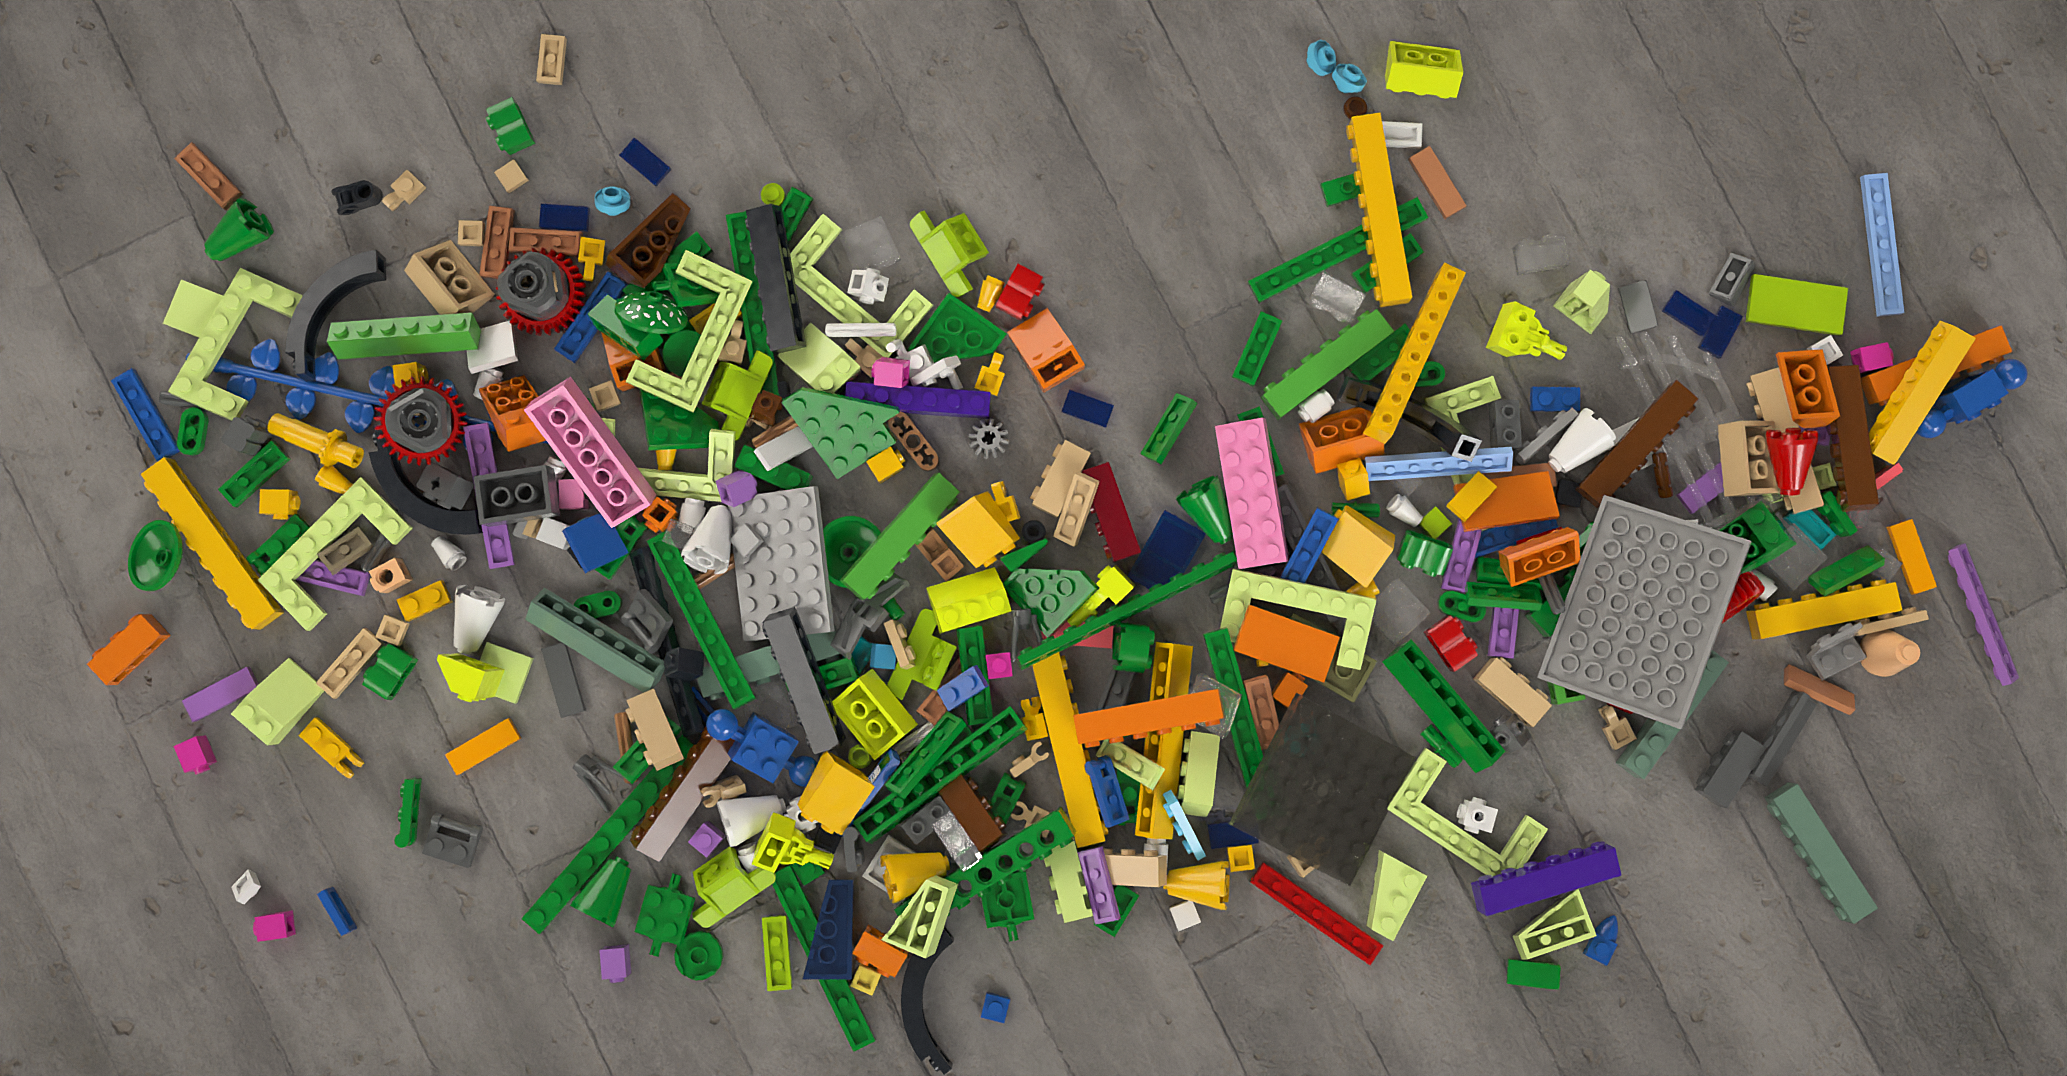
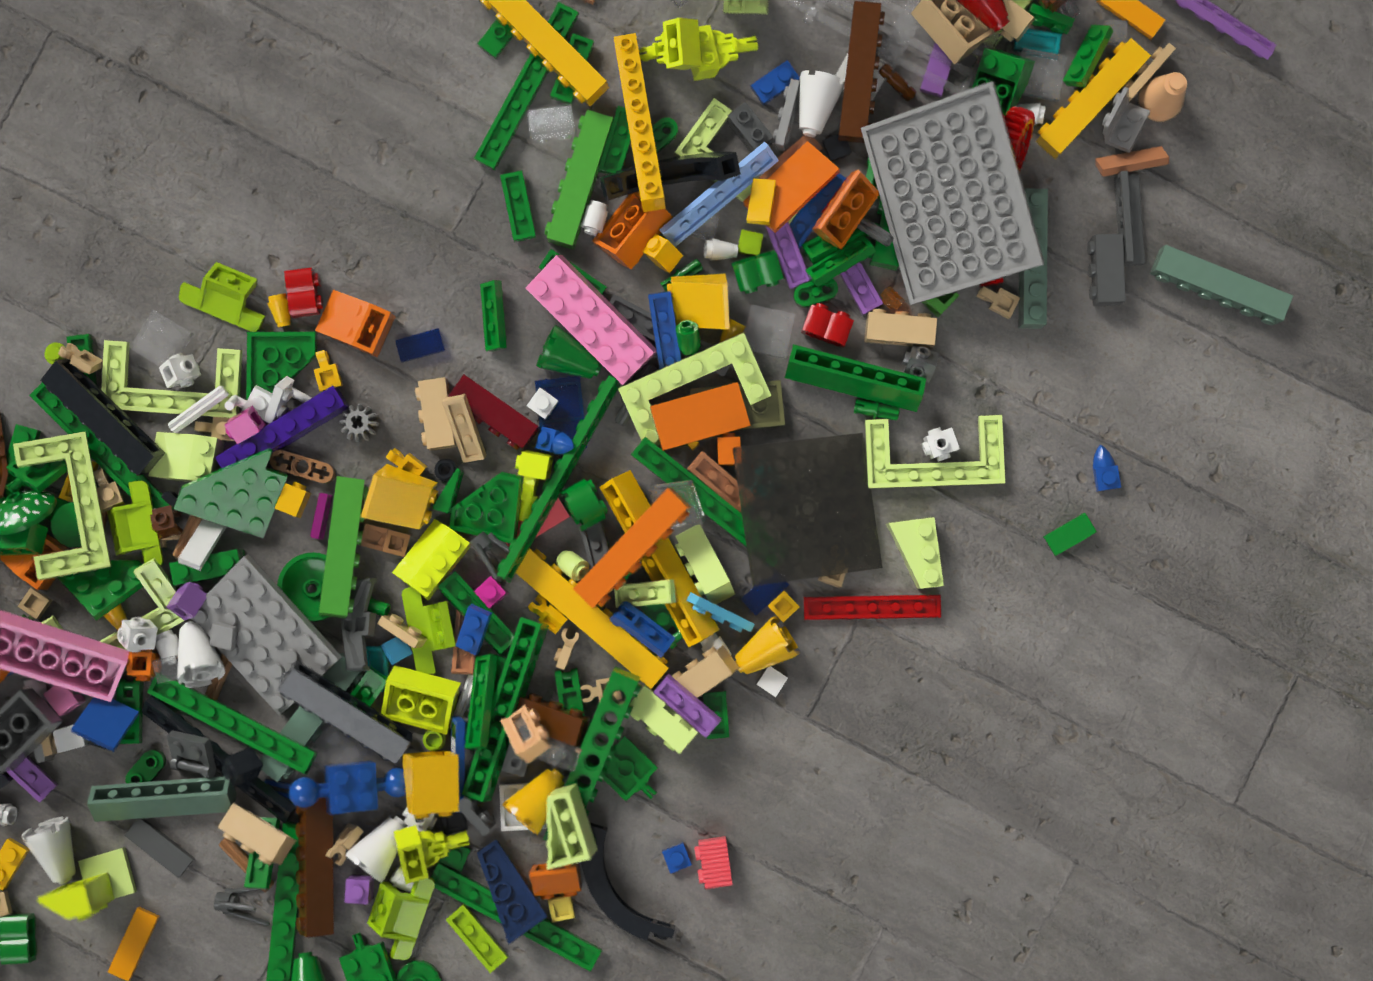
camera: 30 degrees left, 0 degrees up
(675, 487) = (137, 634): none -> white brick
(793, 218) = (83, 360): none -> tan plate
(900, 495) = (321, 516): none -> magenta tile
(946, 812) = (526, 734): none -> light nougat window
(1025, 1035) = (714, 862): none -> coral brick
(1085, 692) = (572, 565): none -> yellowish green brick
(1145, 575) = (554, 441): none -> blue plate
(1157, 534) = (542, 403): none -> white plate
(1324, 568) = (688, 337): none -> green brick
(1495, 310) = (678, 45): none -> neon yellow brick
(1523, 659) = (892, 298): none -> clear orange plate
(1546, 878) = (1026, 454): dark purple brick -> none
(1556, 927) = (1061, 486): yellowish green wedge -> none

